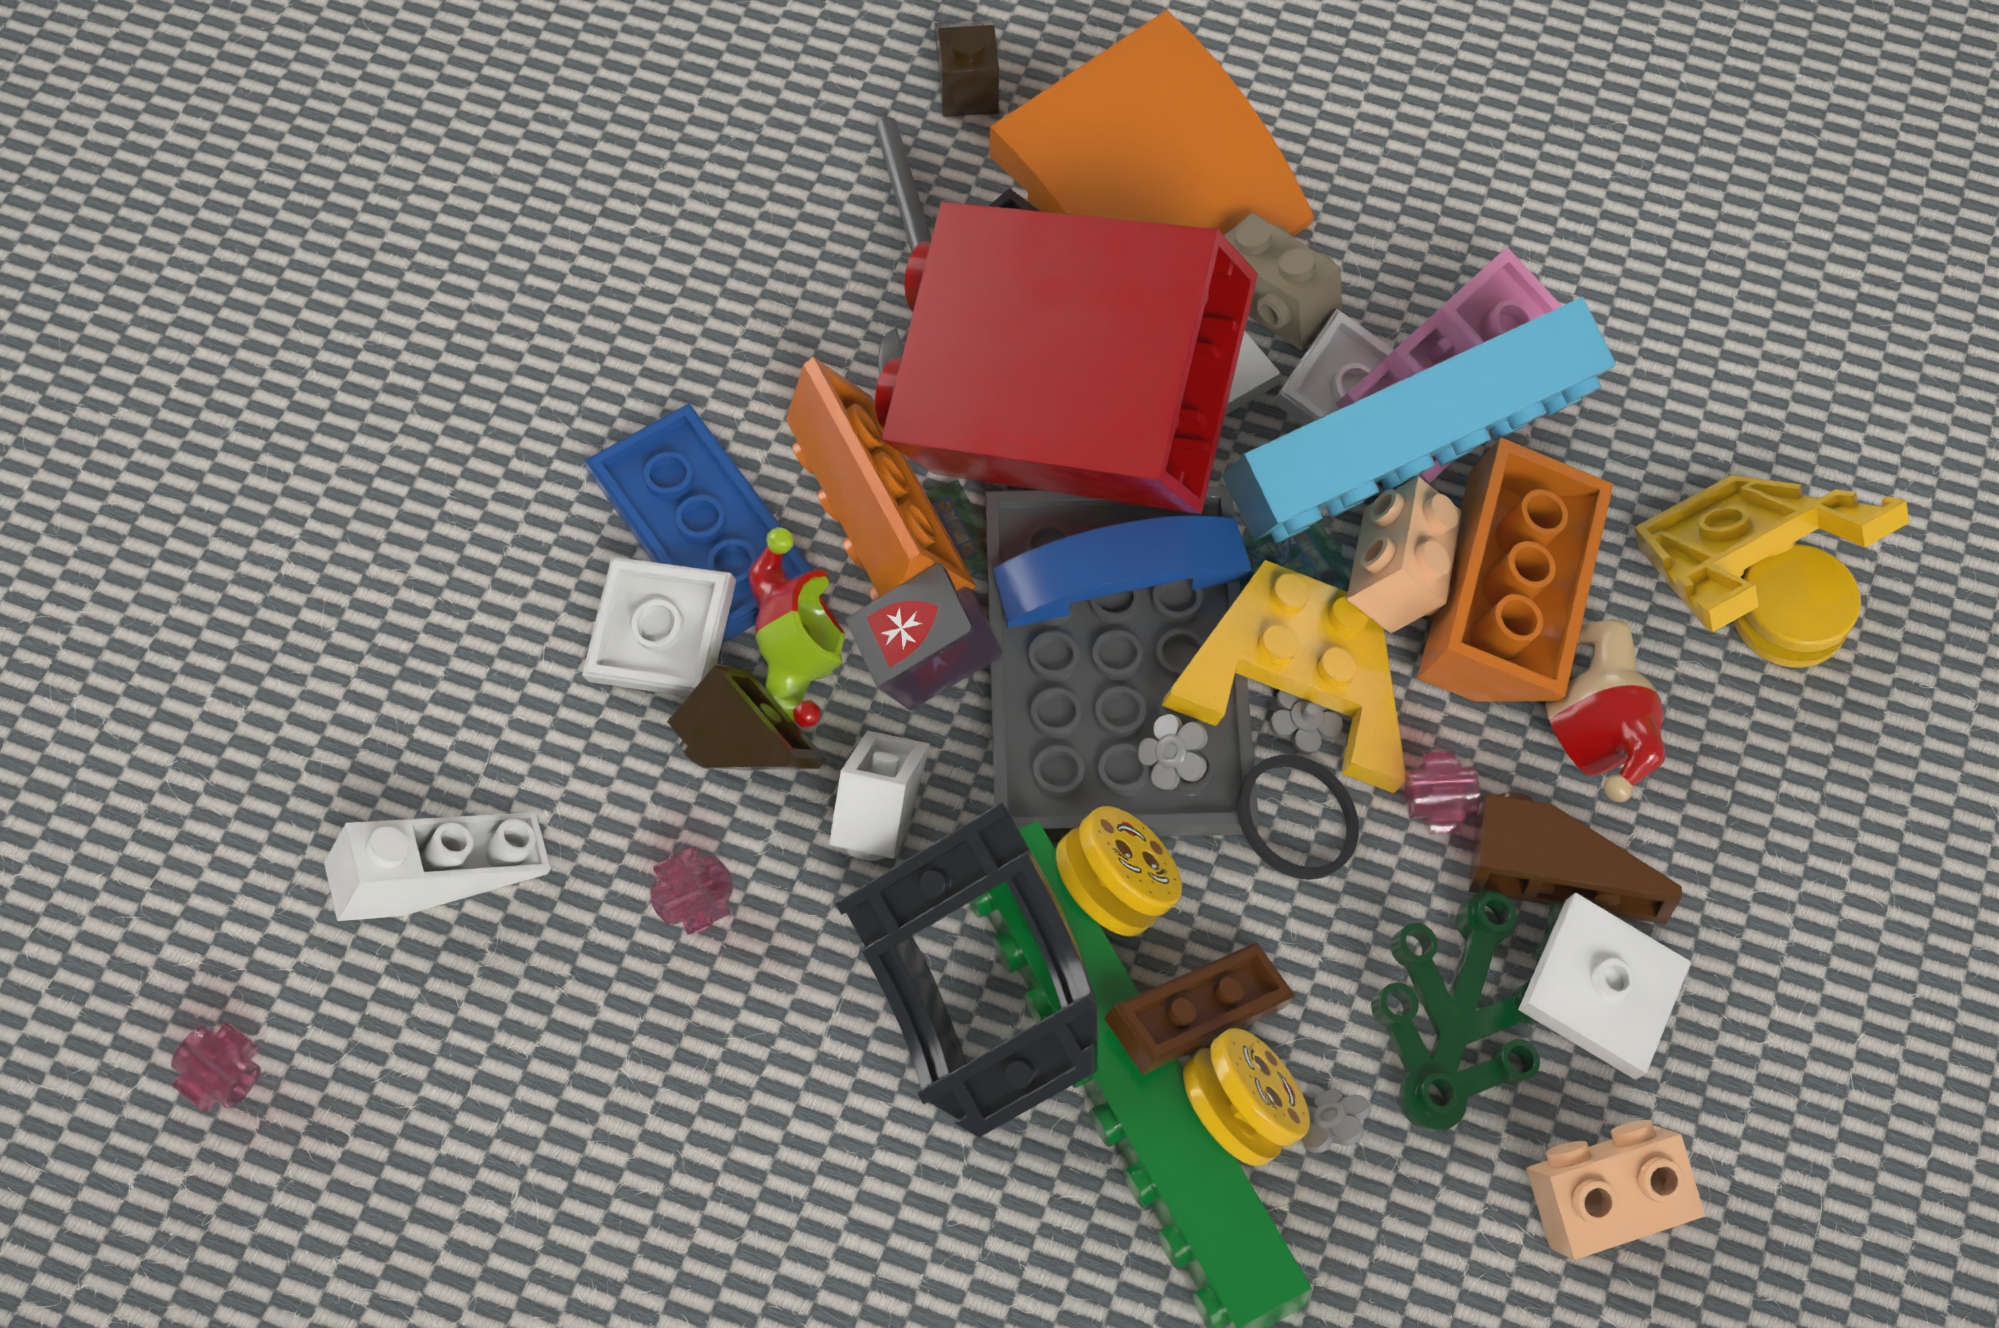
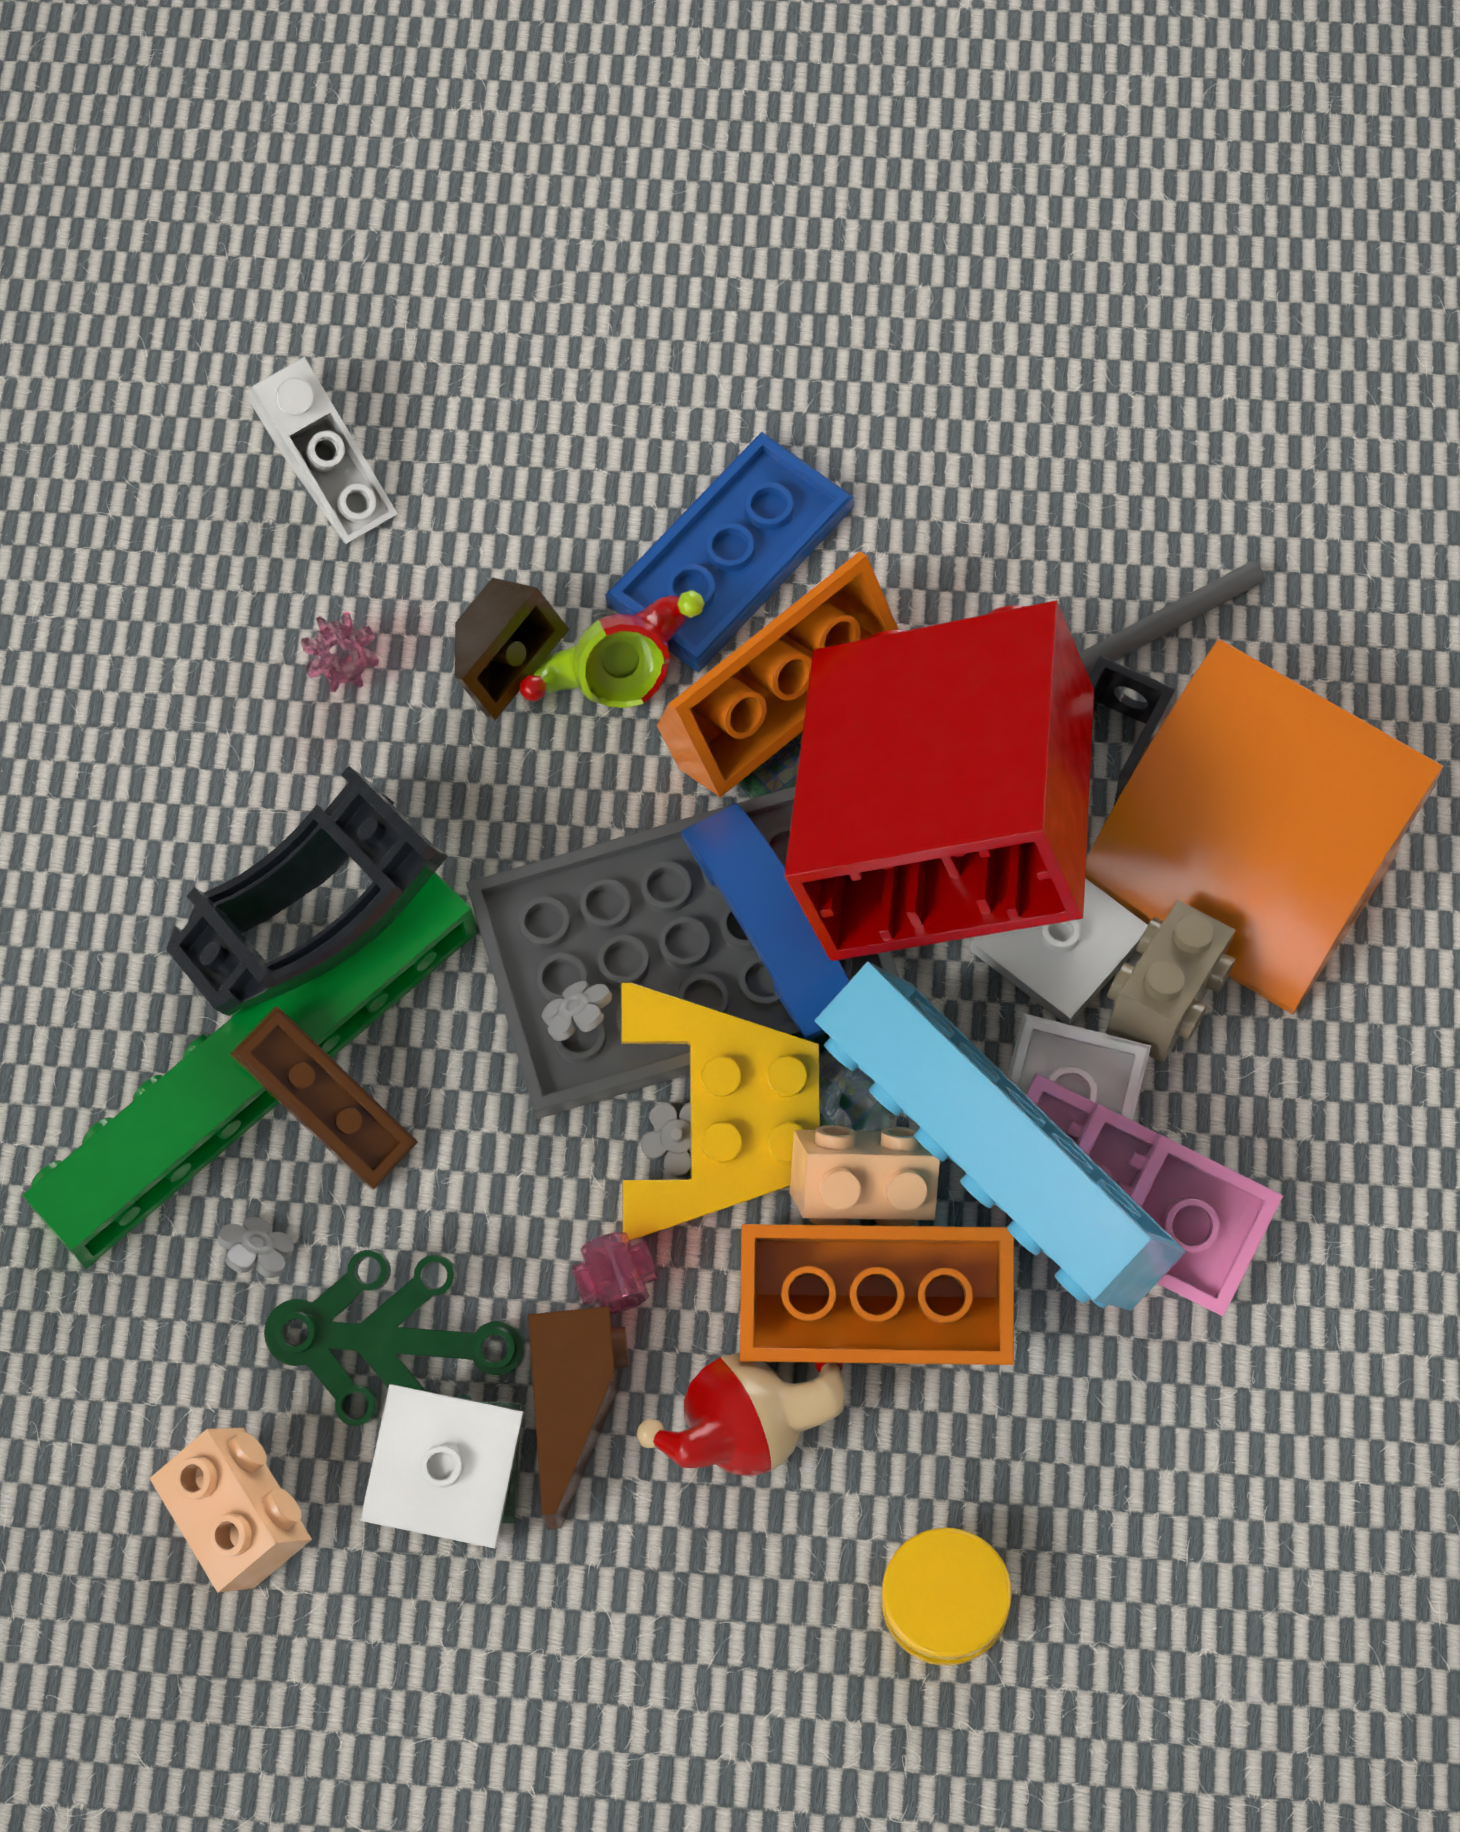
camera: 80 degrees right, 5 degrees up
(215, 1066) = (94, 355): clear pink gear -> none
(658, 626) = (598, 546): white plate -> none
(877, 795) = (480, 775): white slope -> none
(923, 637) = (631, 761): piece -> none
(967, 67) = (1361, 617): dark brown slope -> none
(1118, 871) = (441, 993): yellow head -> none
(1246, 1097) = (242, 1156): yellow head -> none
(1260, 847) = (598, 1192): black piece -> none
(1738, 522) = (1000, 1499): yellow wing -> none

